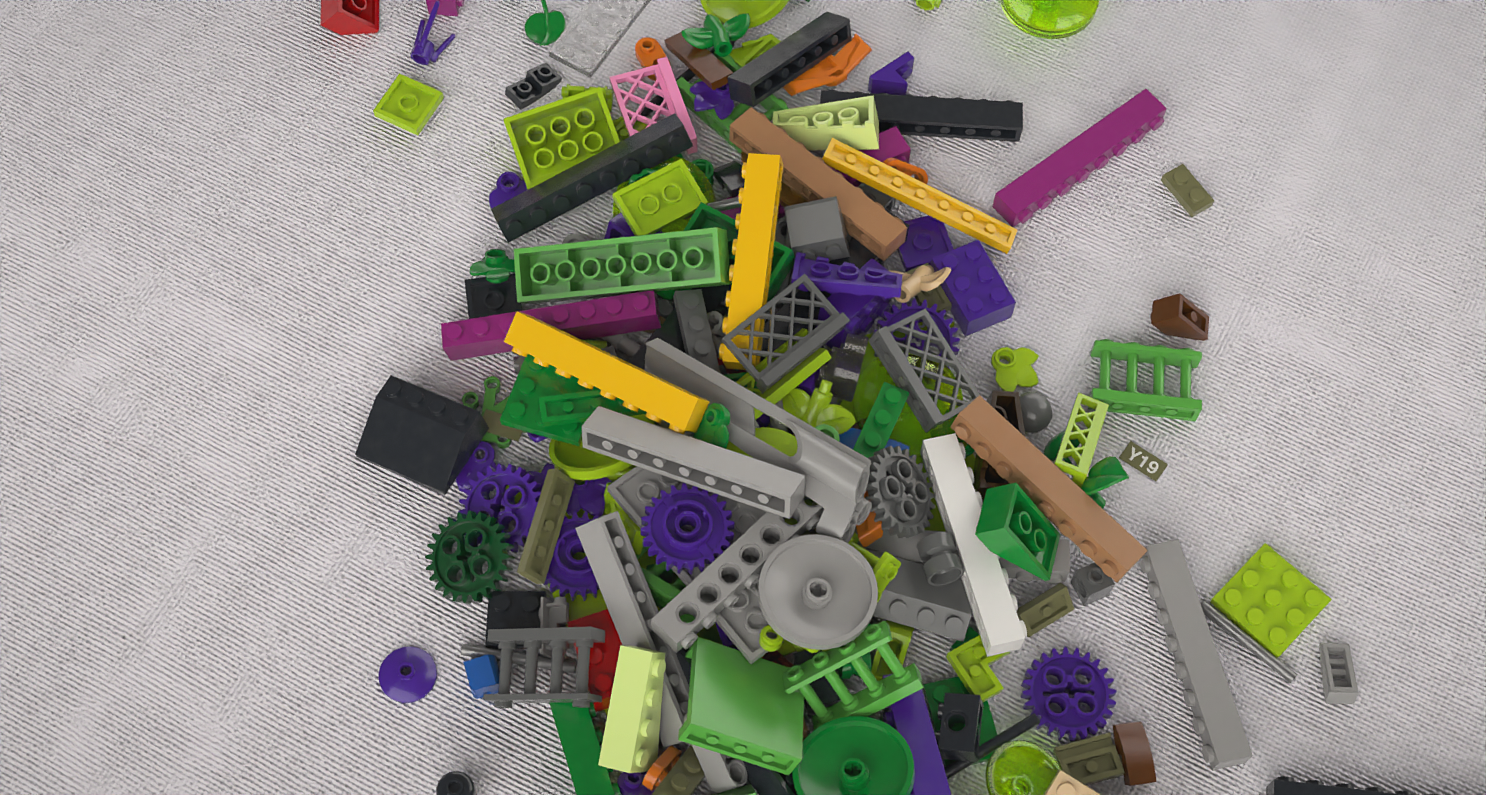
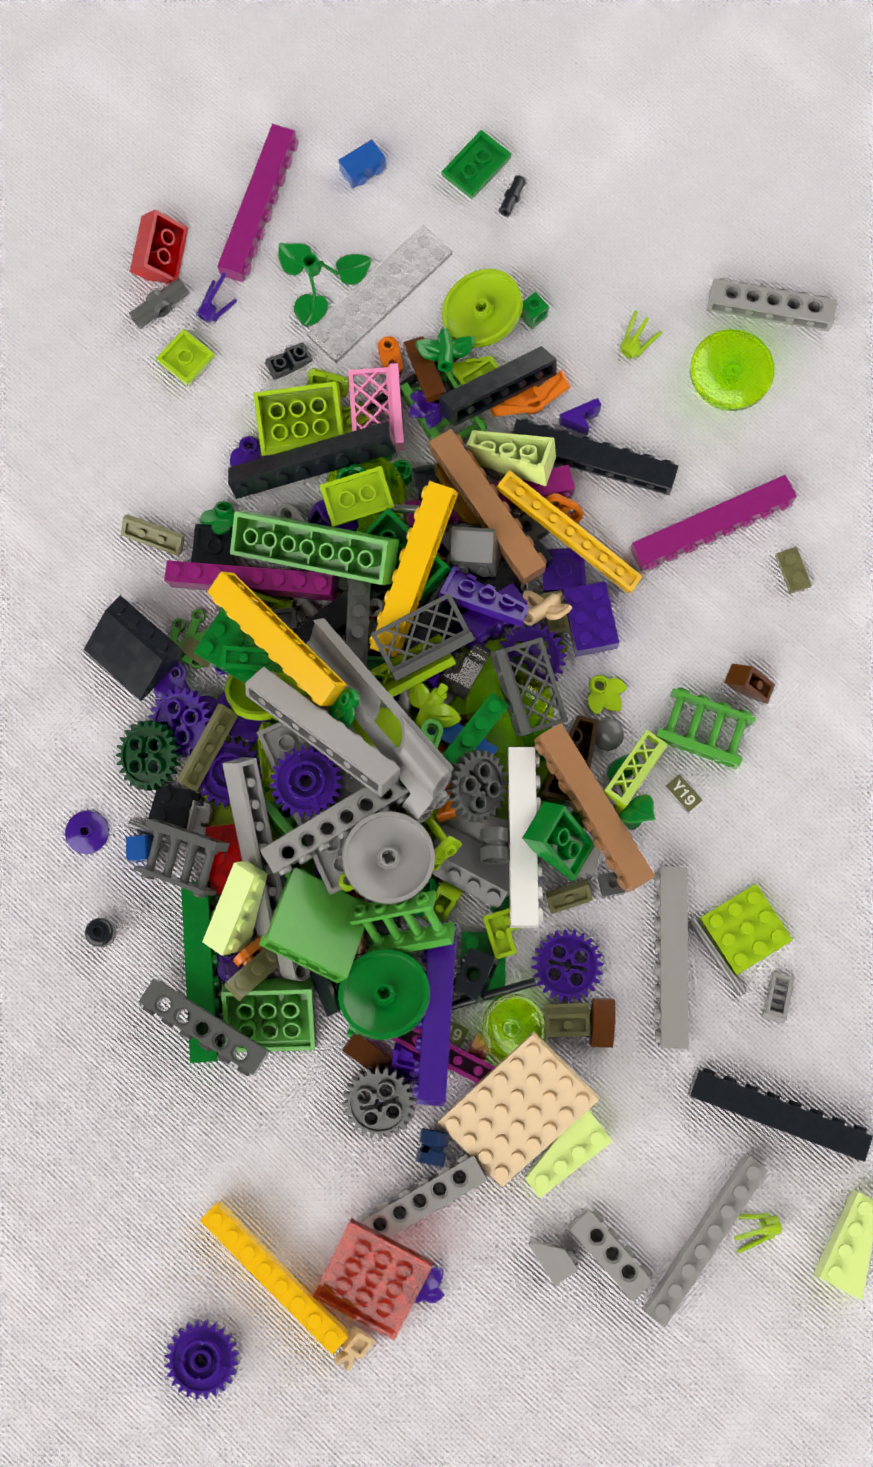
camera: 20 degrees right, 15 degrees up
(363, 53) = (159, 303): none -> dark grey piece
(413, 303) = (152, 535): none -> olive plate

